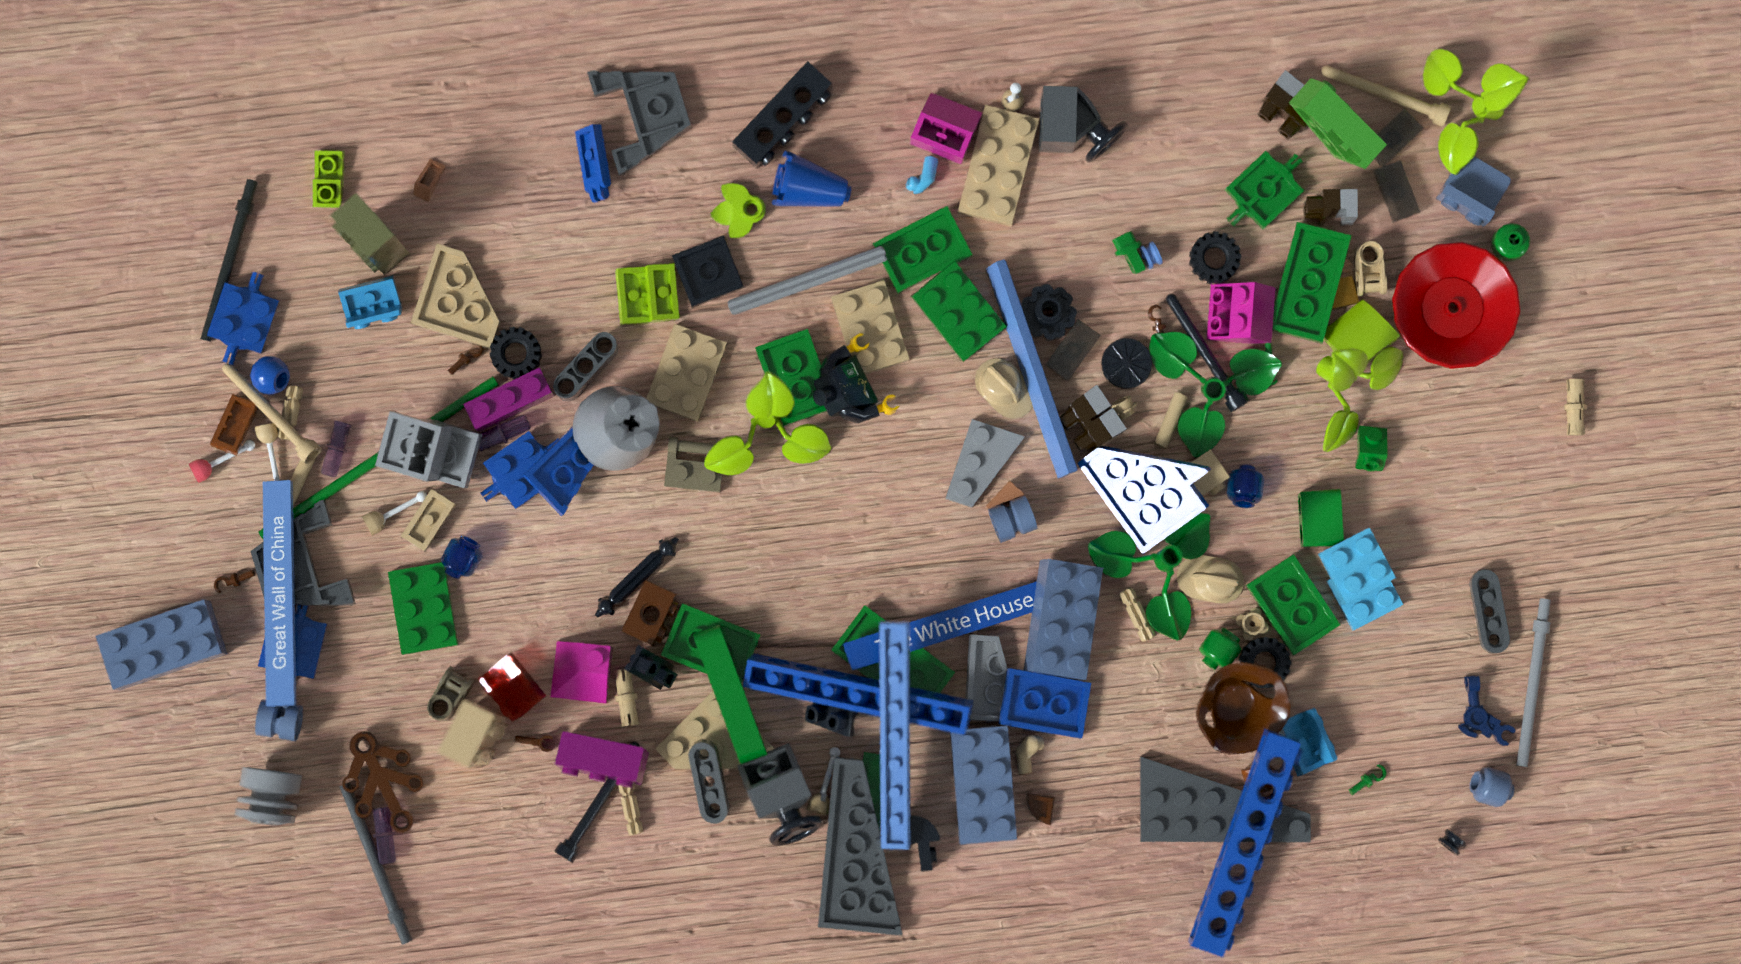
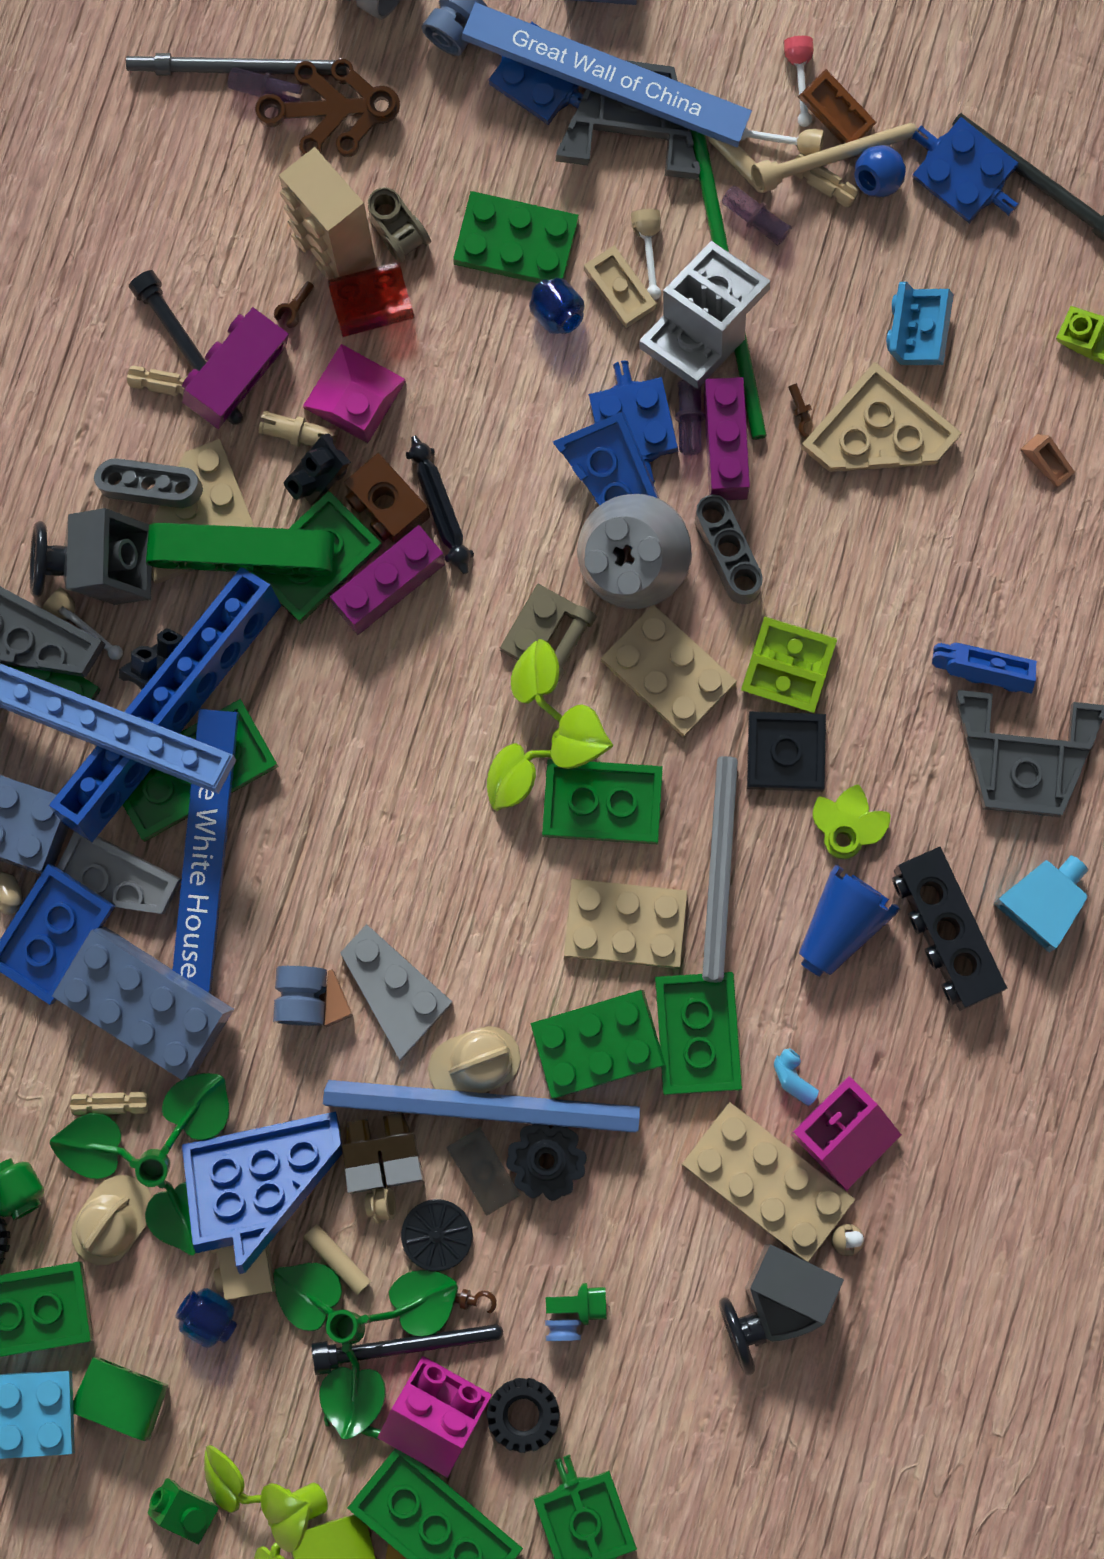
camera: 120 degrees right, 5 degrees down
(234, 579) = (648, 38): reddish brown hand -> none
(368, 235) = (1004, 341): olive brick -> none
(510, 336) = (790, 452): black tyre -> none
(706, 586) = (388, 580): none -> magenta brick
(736, 60) = (1046, 901): none -> medium azure torso
(845, 387) = (559, 855): torso -> none
(1244, 622) = (37, 1255): tan plate -> none

